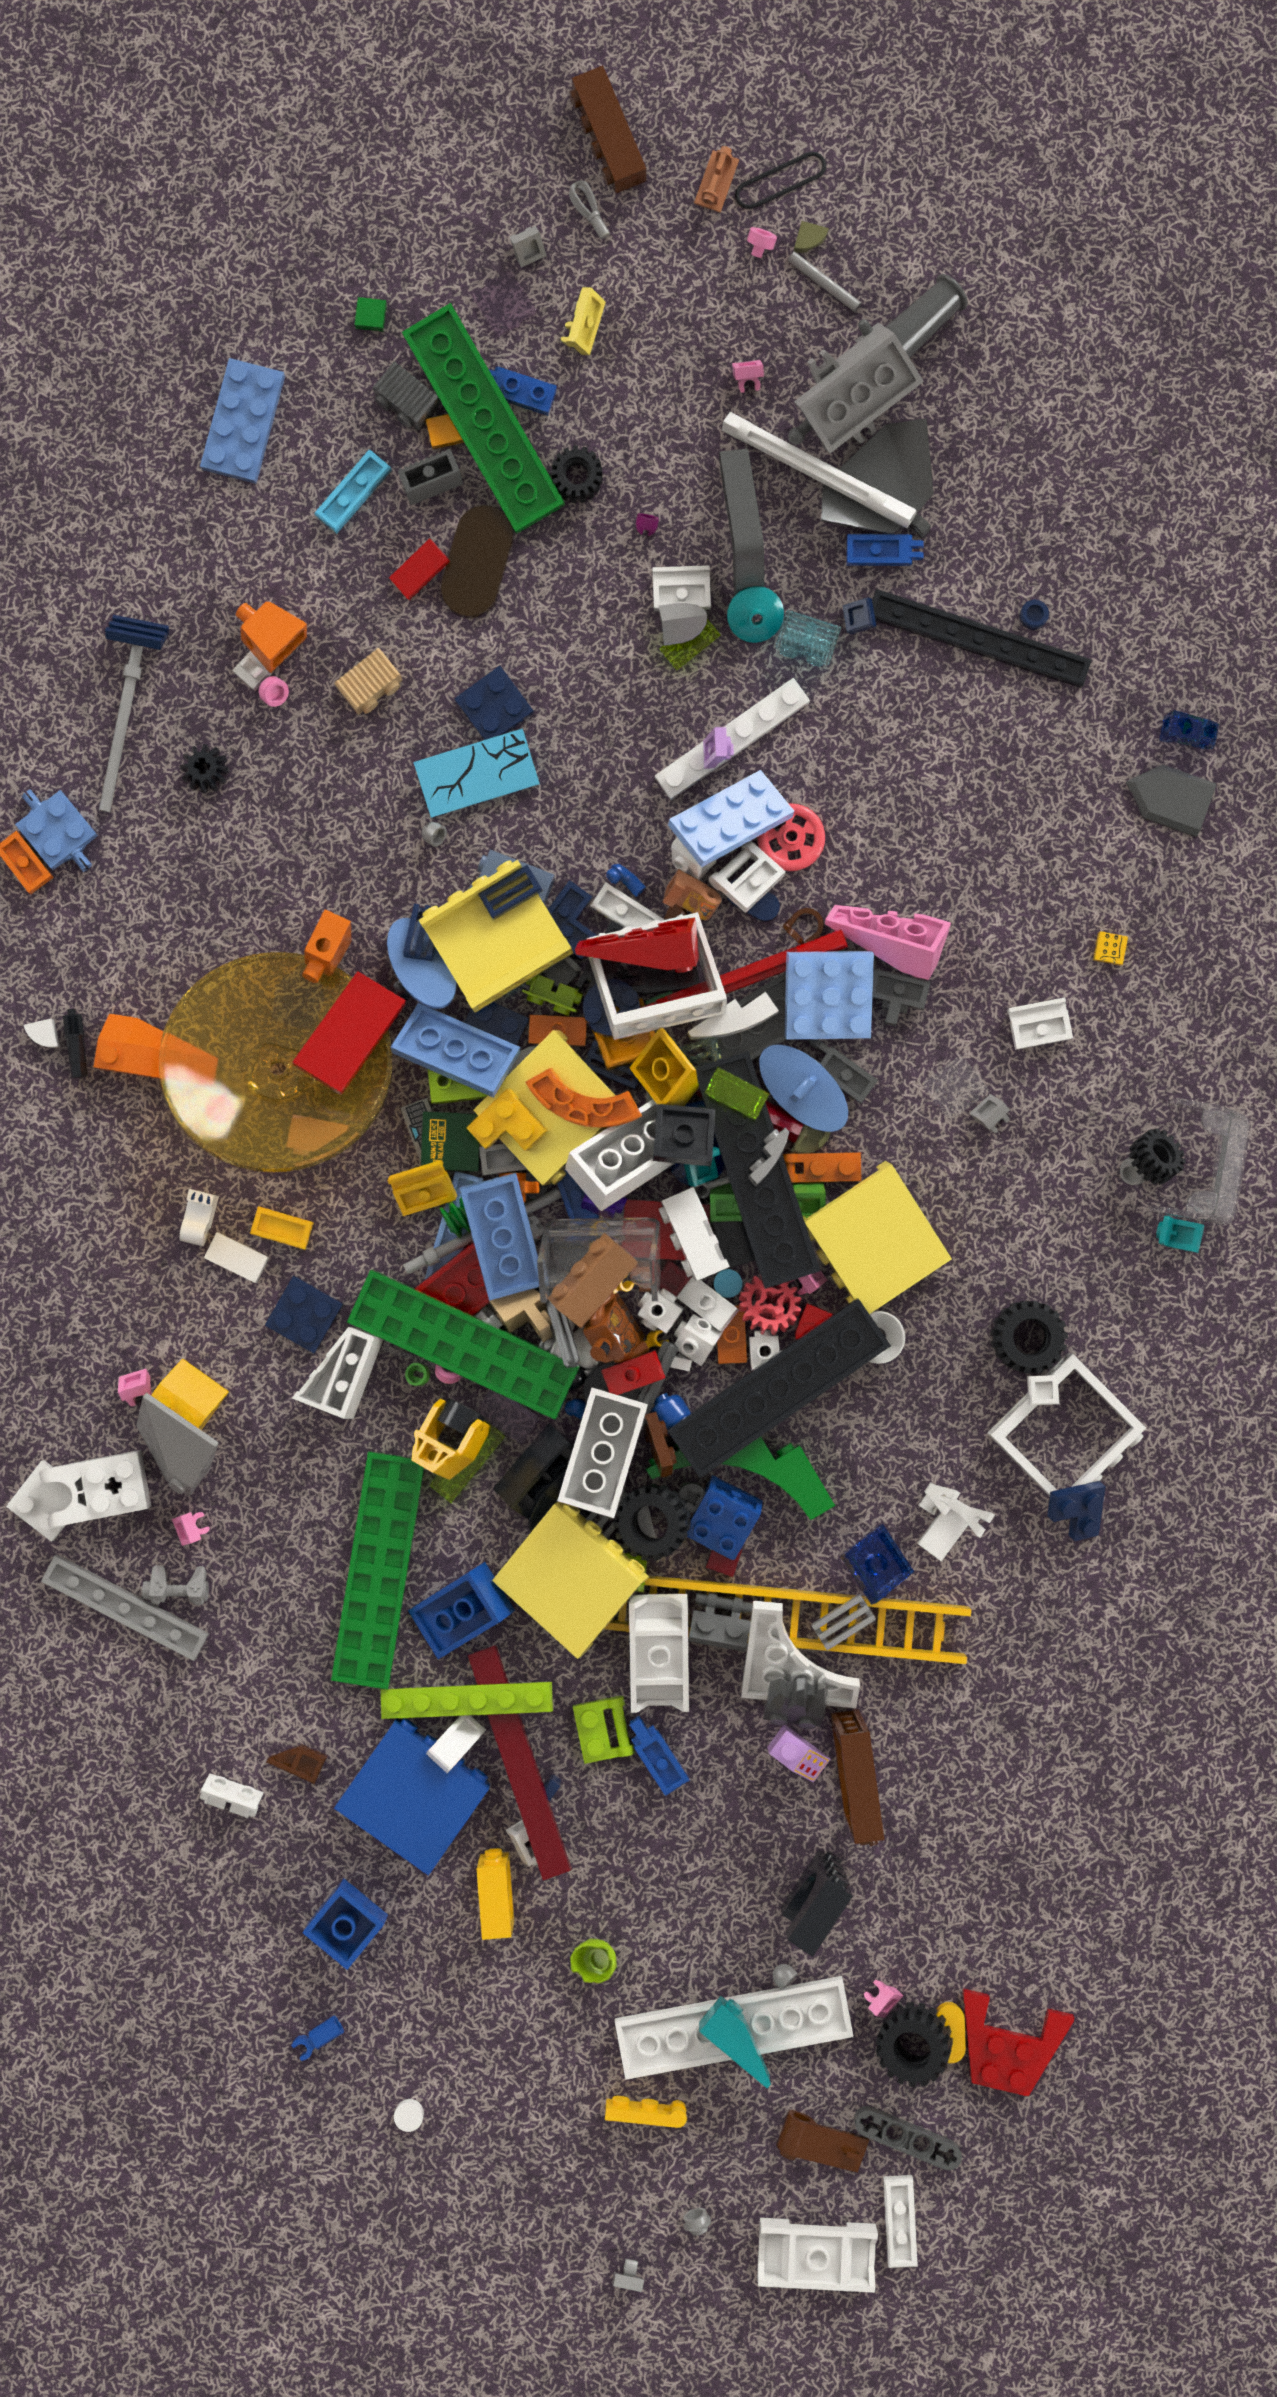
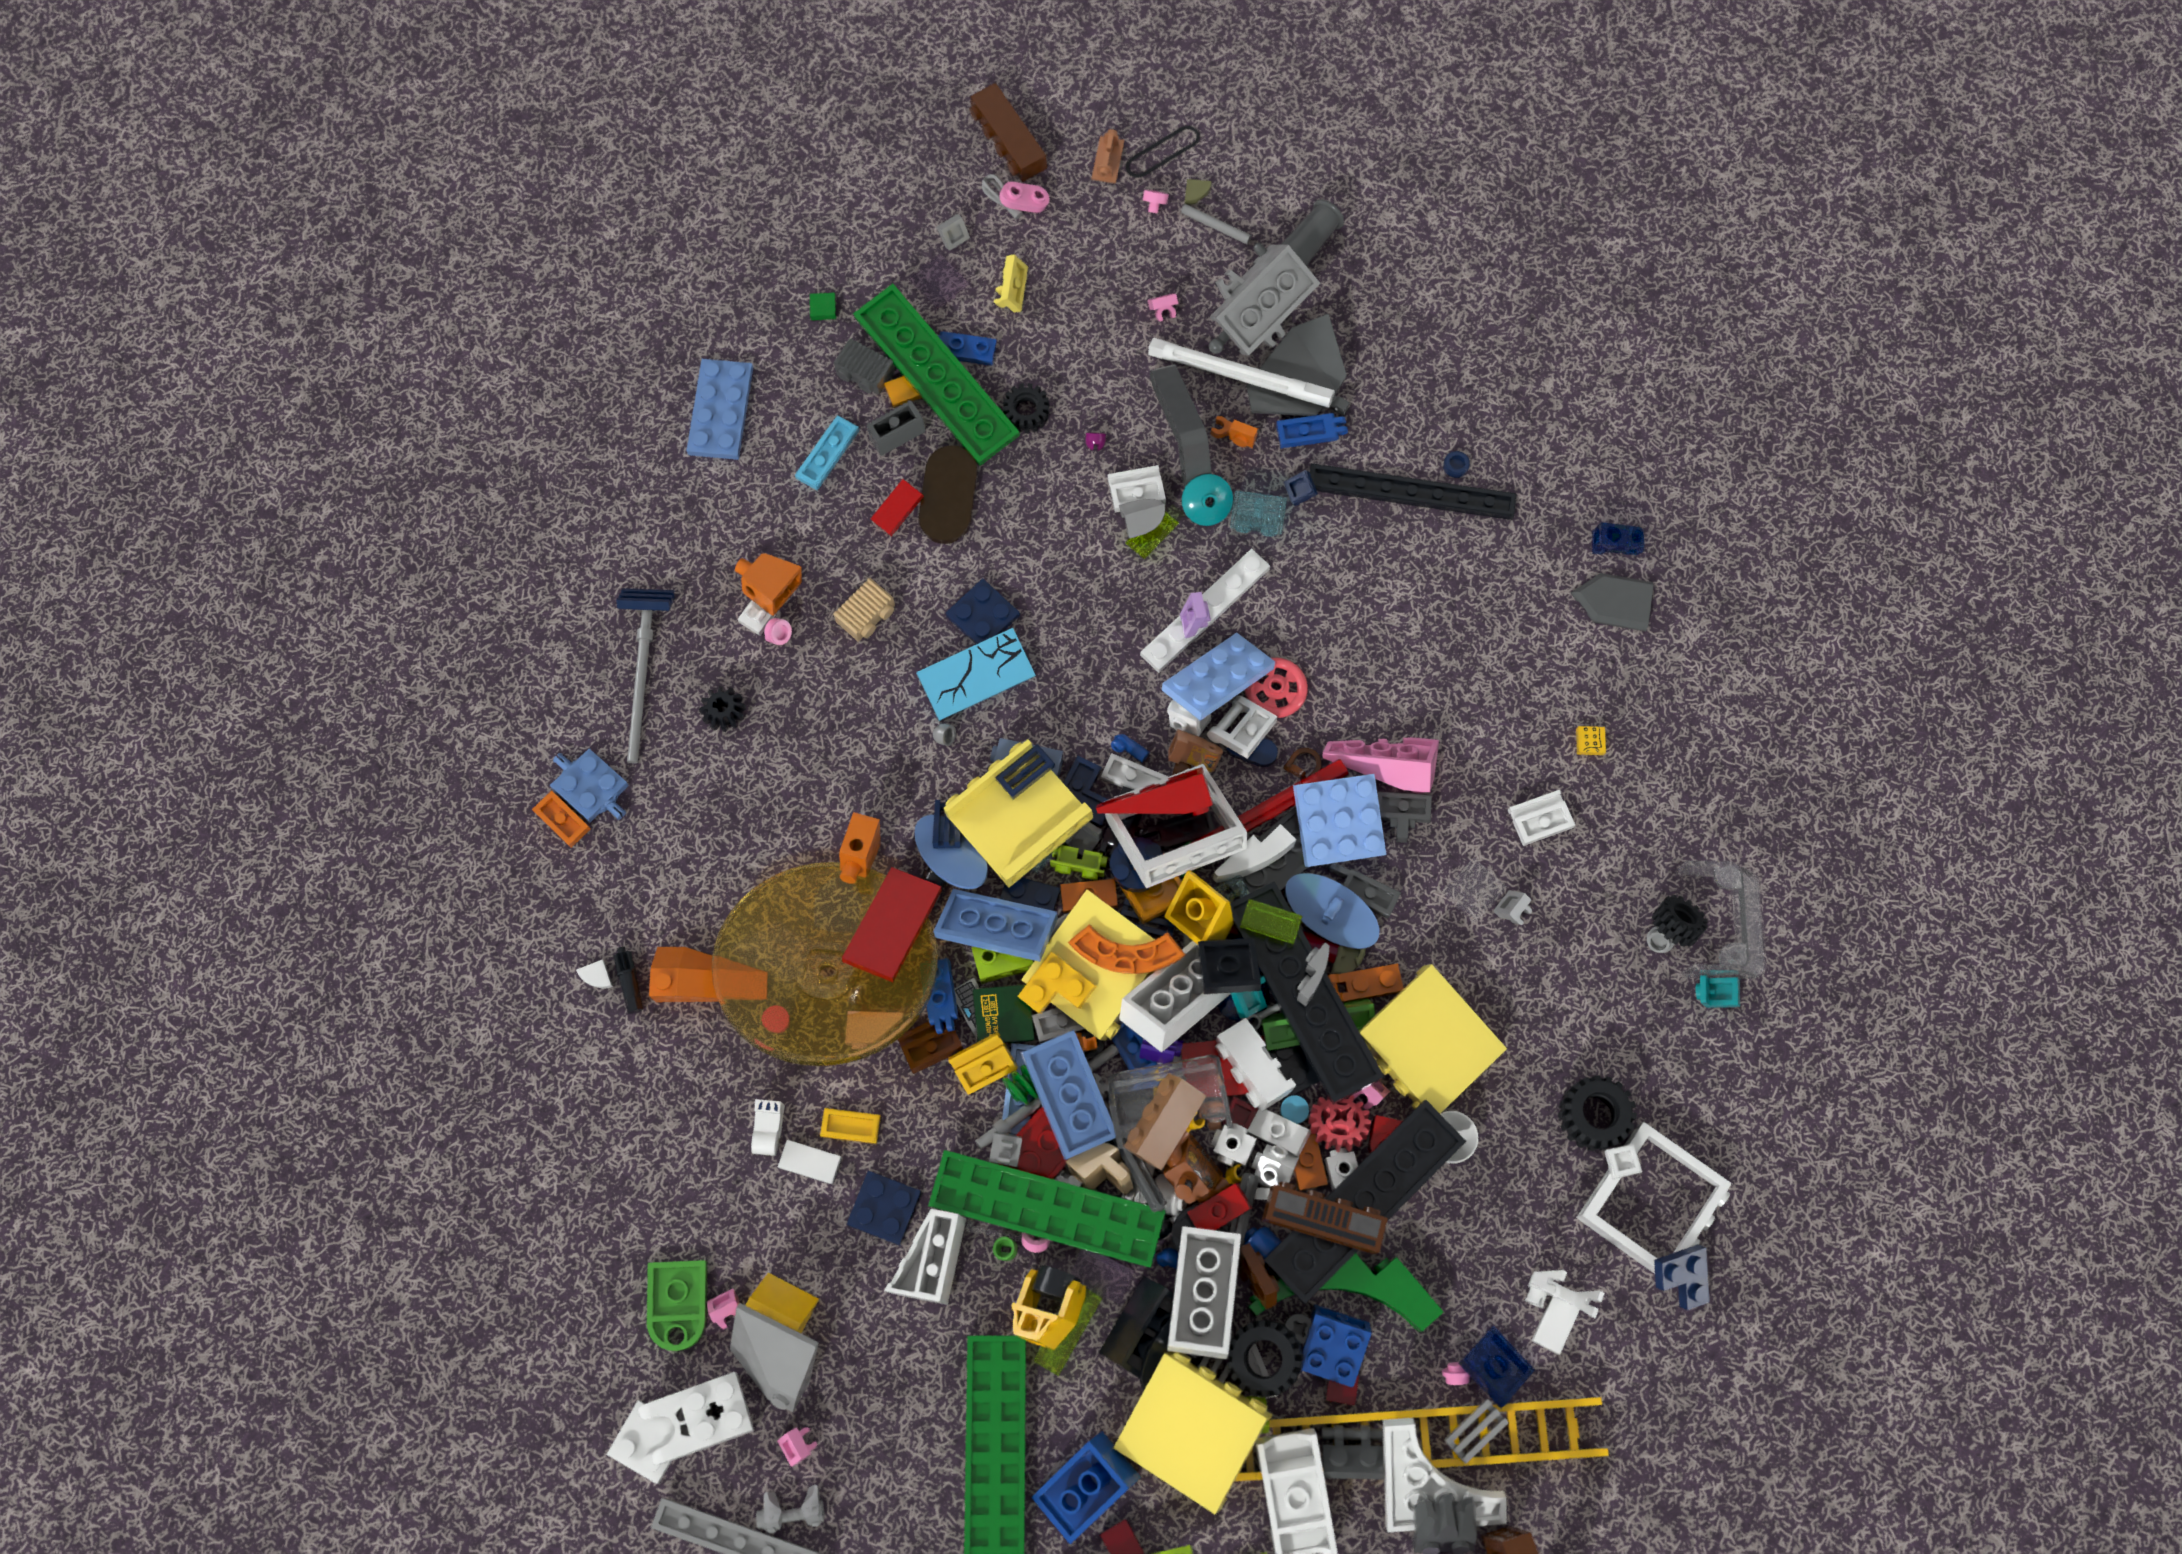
camera: 10 degrees left, 15 degrees down
(89, 1370) = (677, 1300): none -> bright green tile
(373, 1158) = (925, 1047): none -> reddish brown plate
(391, 1118) = (942, 1003): none -> blue hinge
(431, 1279) = (1005, 1149): none -> light grey tile
(615, 216) = (1025, 198): none -> bright pink plate
(732, 1402) = (1325, 1218): none -> brick
(804, 541) = (1238, 432): none -> orange plate
(834, 1564) = (1455, 1374): none -> bright pink plate

